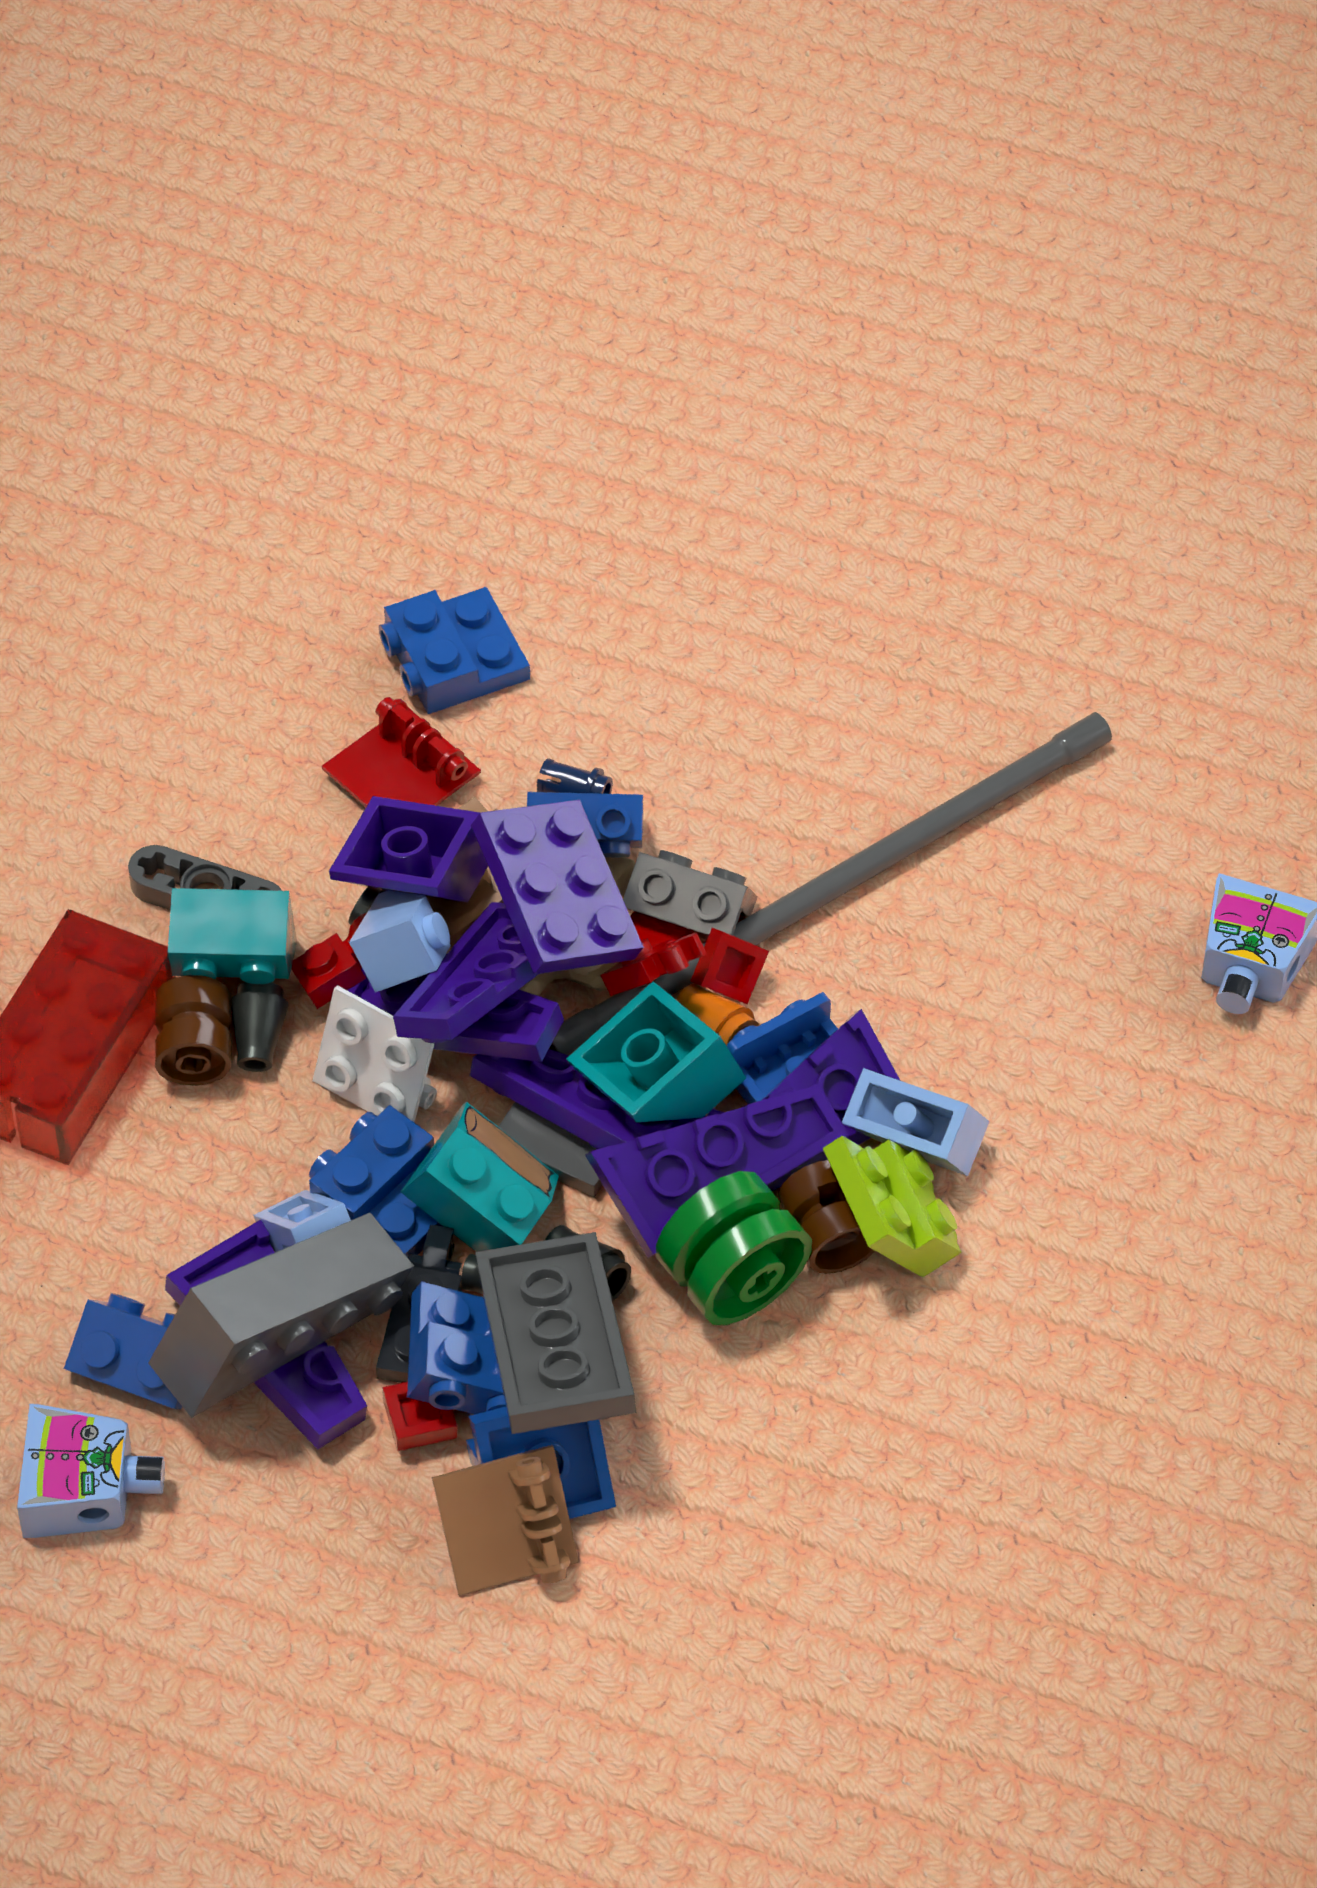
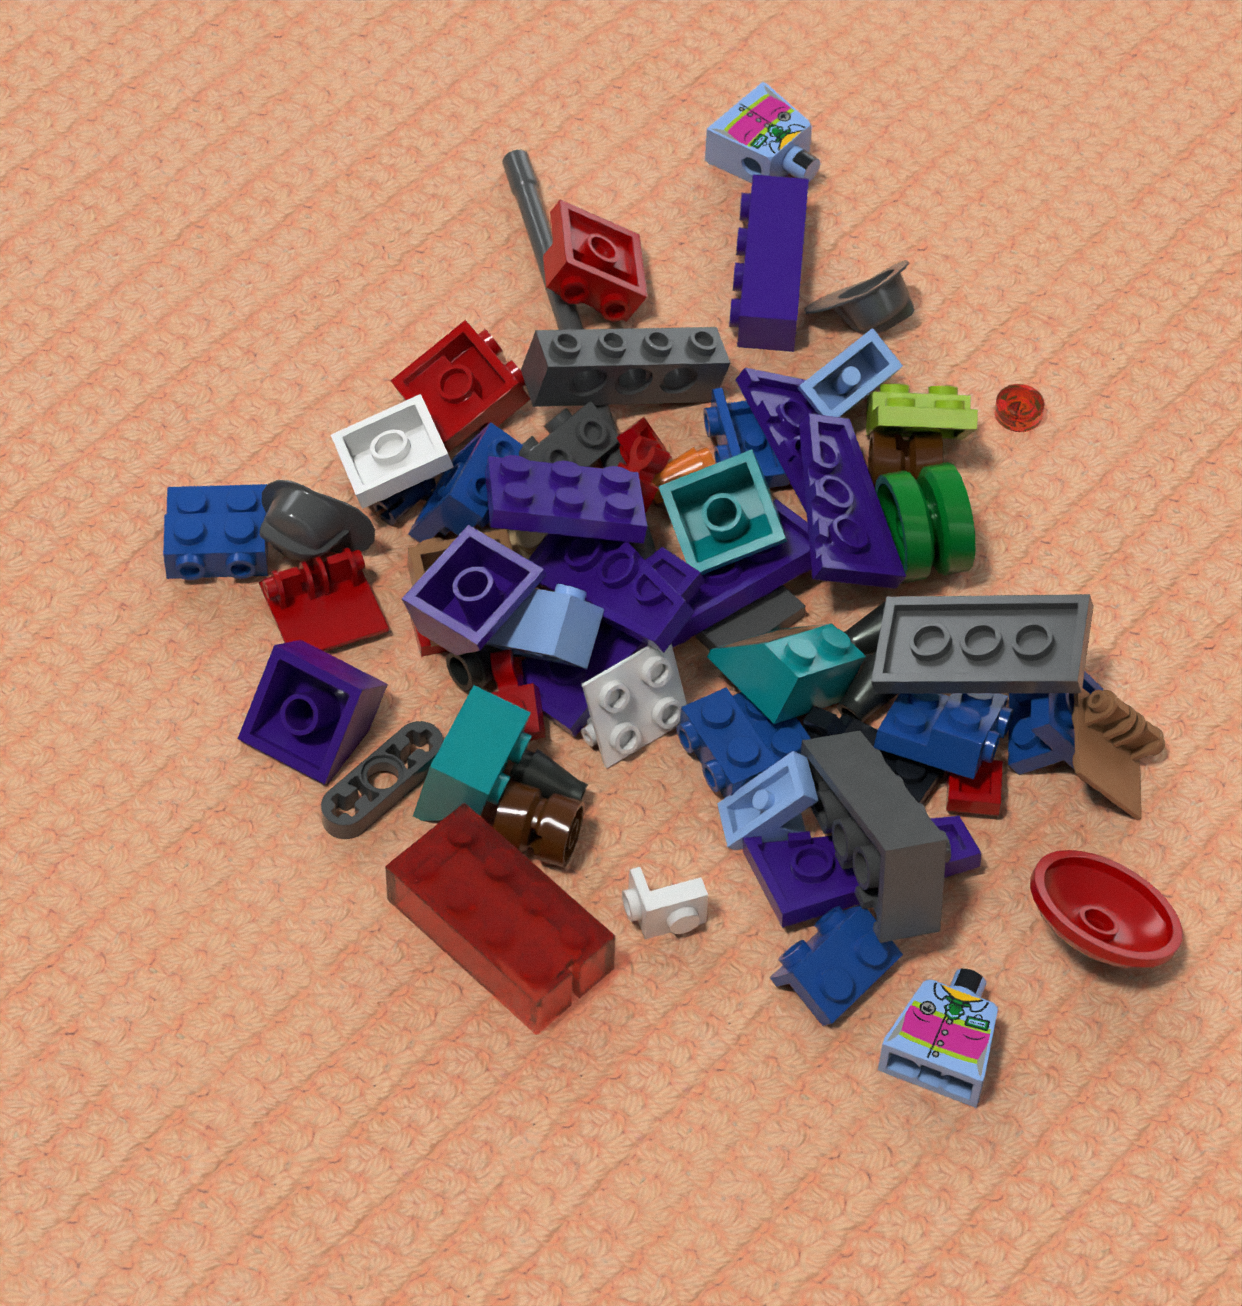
camera: 70 degrees left, 0 degrees up
(137, 1174) = (666, 909): none -> white bracket
(261, 798) = (311, 709): none -> dark purple slope
(311, 1548) = (1105, 910): none -> red dish
(462, 705) = (310, 523): none -> dark grey piece
(603, 744) = (391, 451): none -> white plate
(739, 782) = (464, 384): none -> red plate
(817, 904) = (624, 366): none -> dark grey brick
(963, 834) = (594, 263): none -> red plate
(991, 1316) = (1019, 407): none -> clear red tile
(1057, 1114) = (871, 303): none -> dark grey piece
(1070, 1007) = (772, 263): none -> dark purple brick

